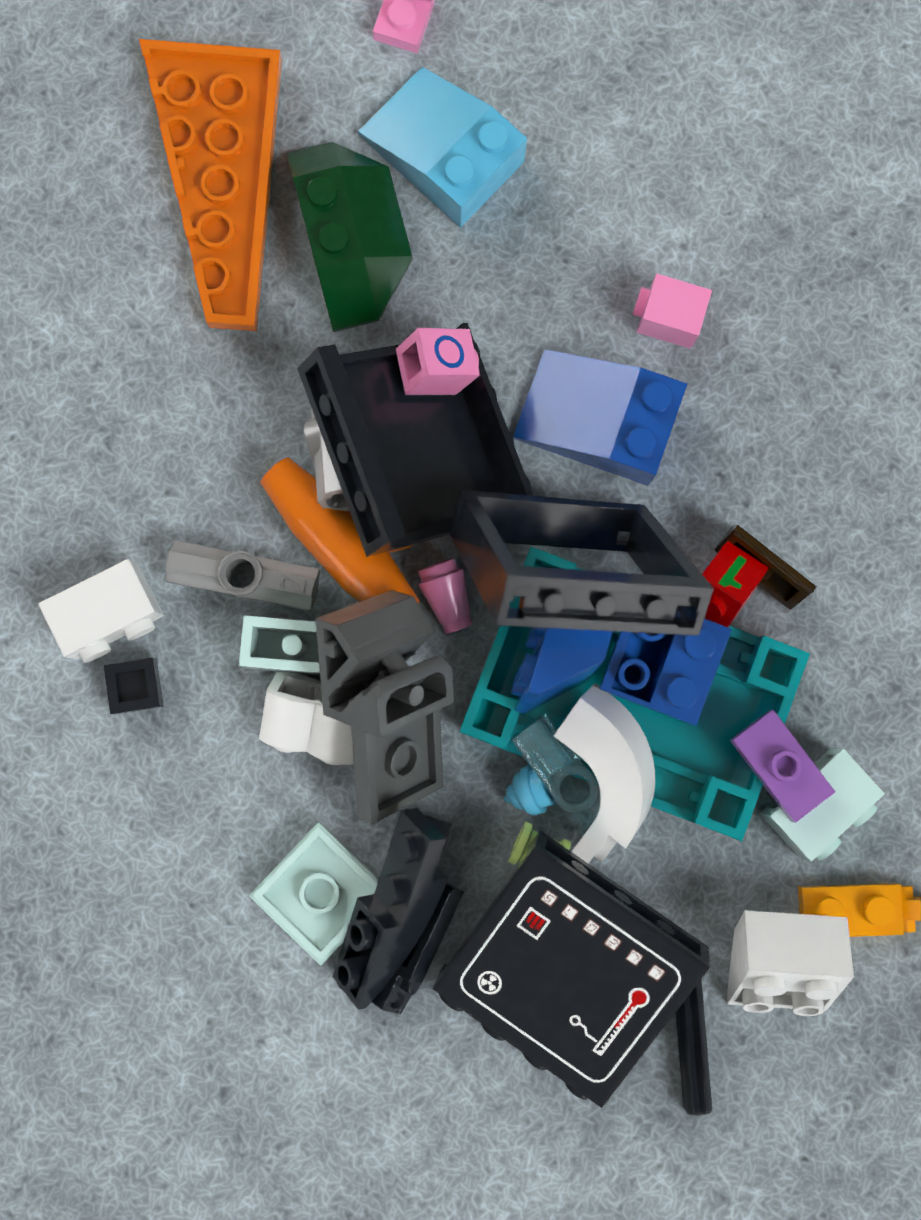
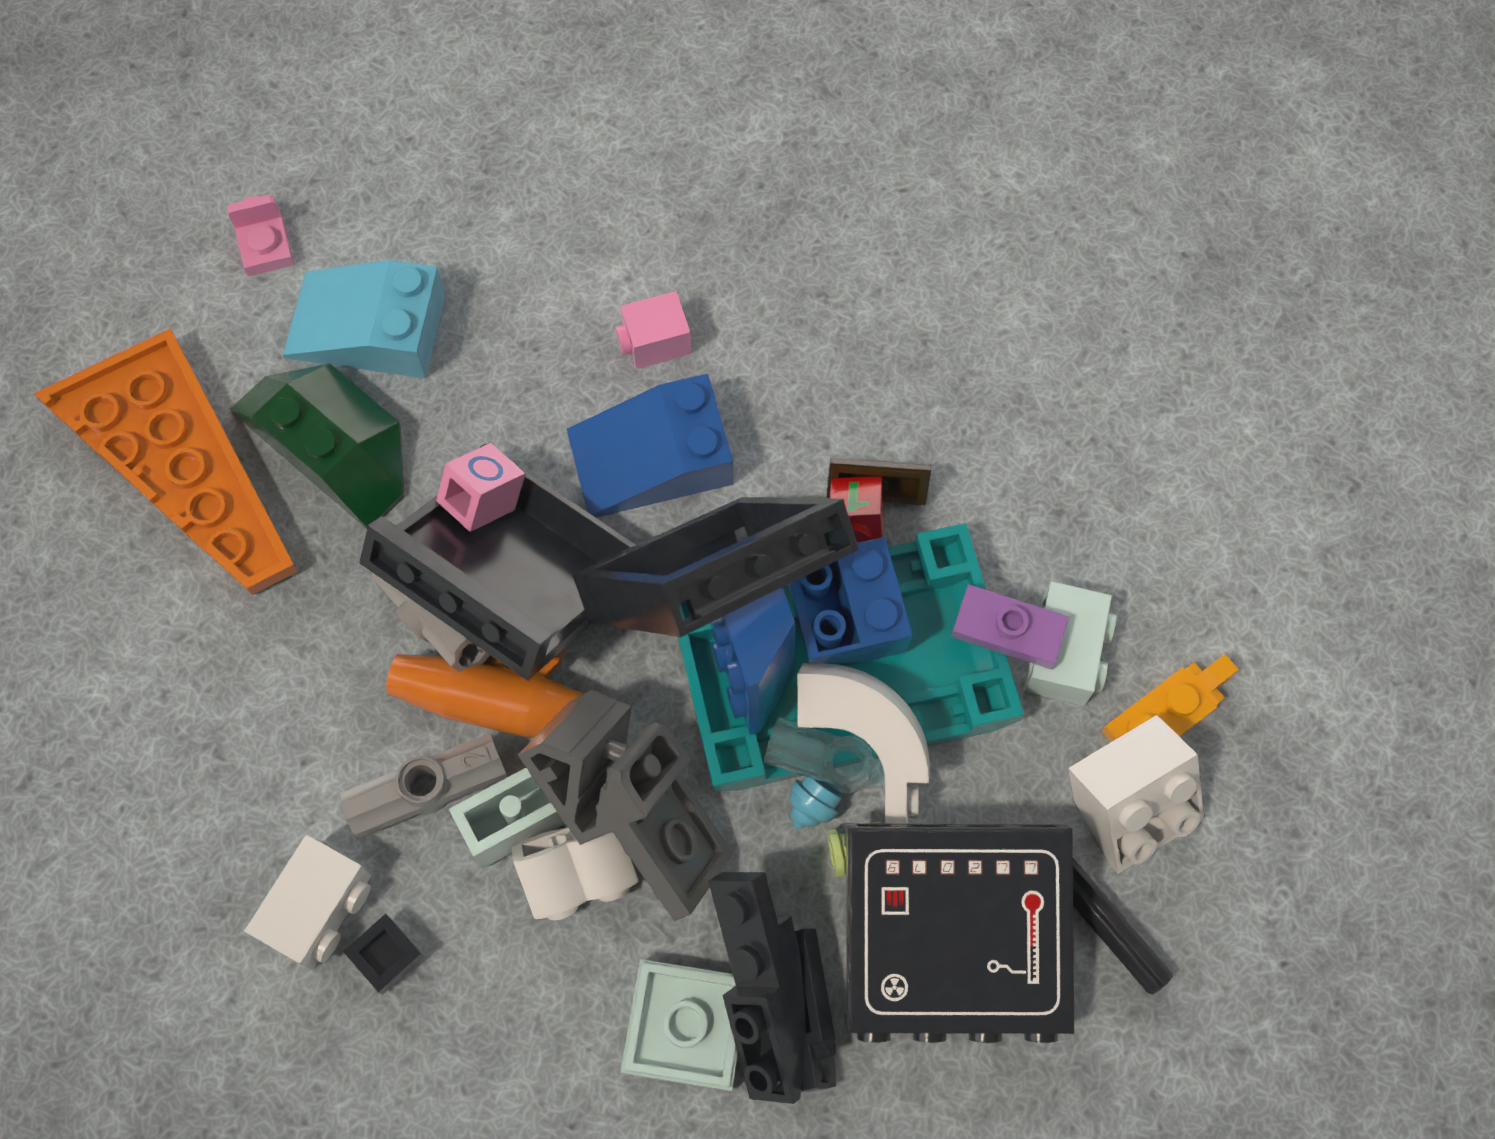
camera: 30 degrees left, 15 degrees down
(446, 594) = (619, 678): bright pink cone -> none

